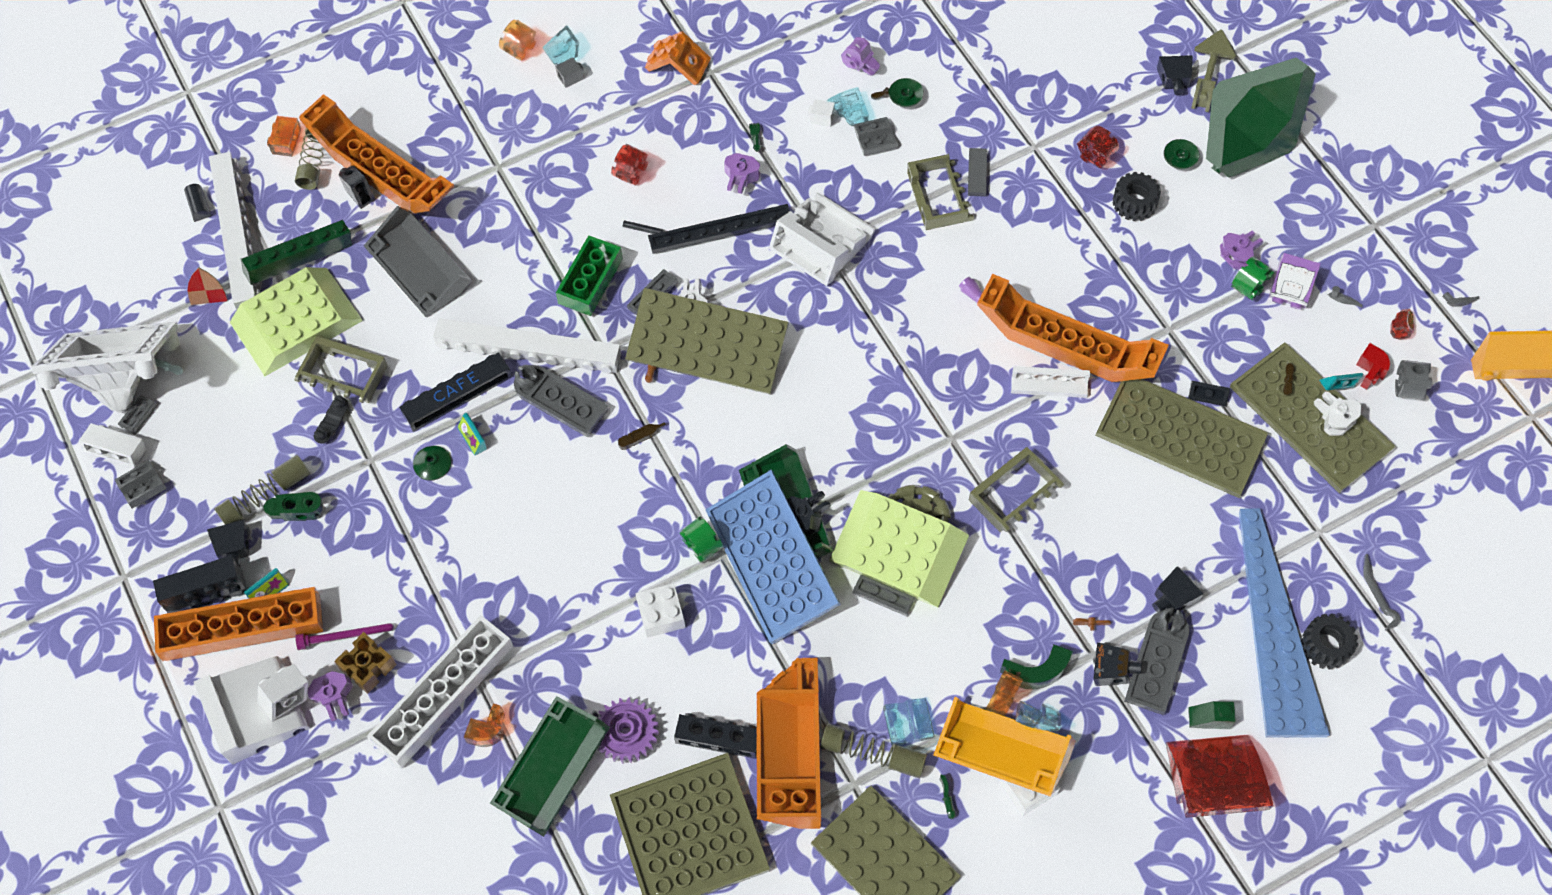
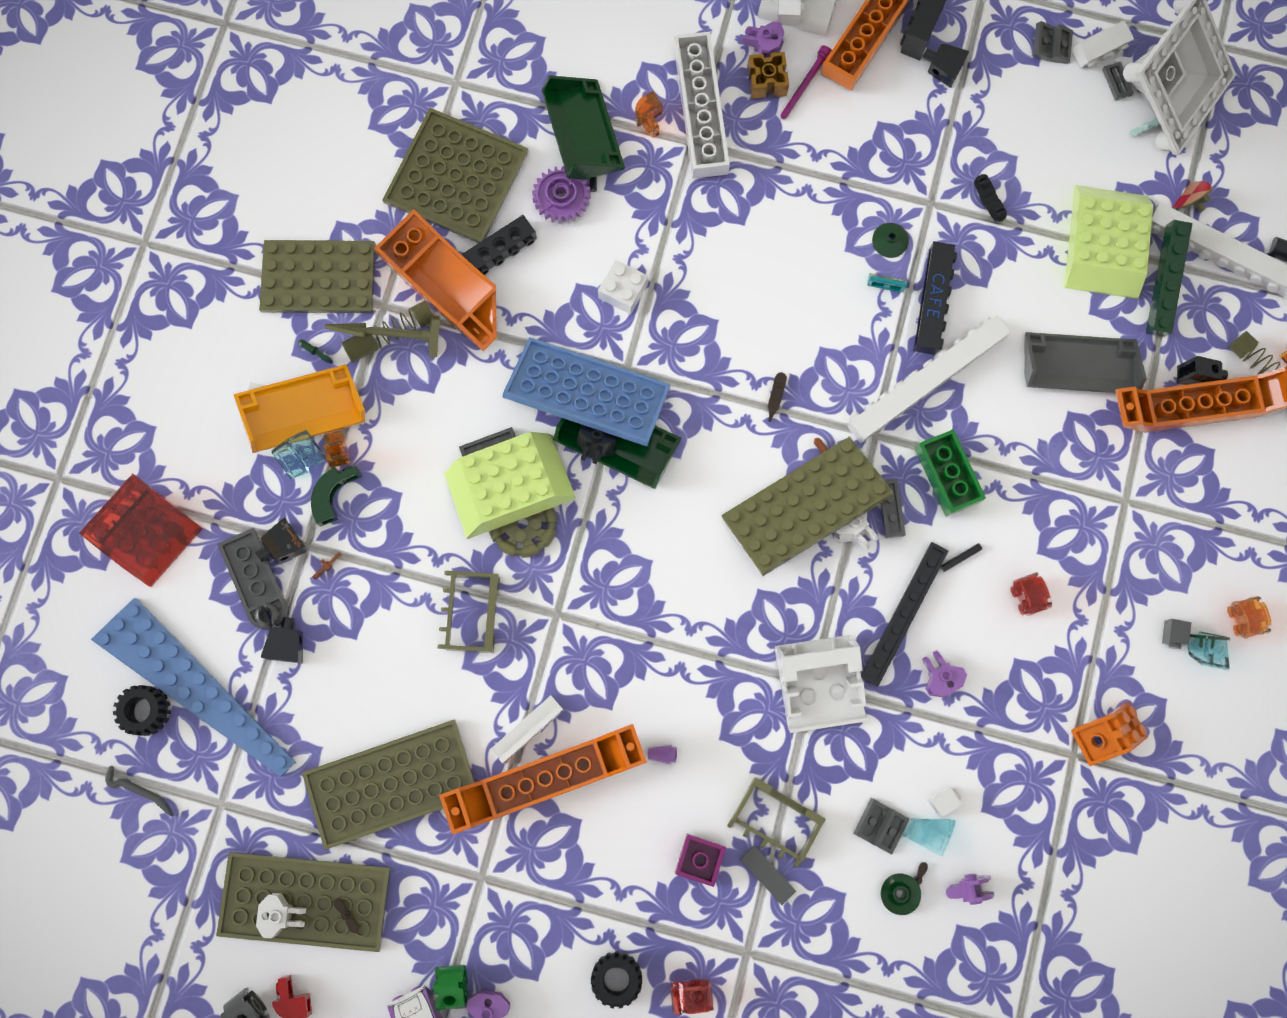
camera: 130 degrees right, 15 degrees up
(269, 584) = (887, 61): slope -> none
(279, 507) = (945, 113): dark green piece -> none
(284, 474) = (970, 130): olive piece -> none
(331, 347) = (1055, 217): olive hinge -> none
(556, 49) = (1213, 638): none -> dark green piece
(559, 398) = (860, 364): dark grey plate -> none
(701, 539) = (647, 356): green brick -> none
(755, 131) = (977, 731): dark green piece -> none
(902, 761) = (360, 329): none -> olive piece
(908, 721) = (387, 376): clear light blue slope -> none
(1013, 210) = (700, 860): none -> magenta brick
(1208, 393) = (402, 846): black slope -> none
(1212, 715) = (183, 574): dark green slope -> none
(1341, 381) = (305, 956): teal slope -> none

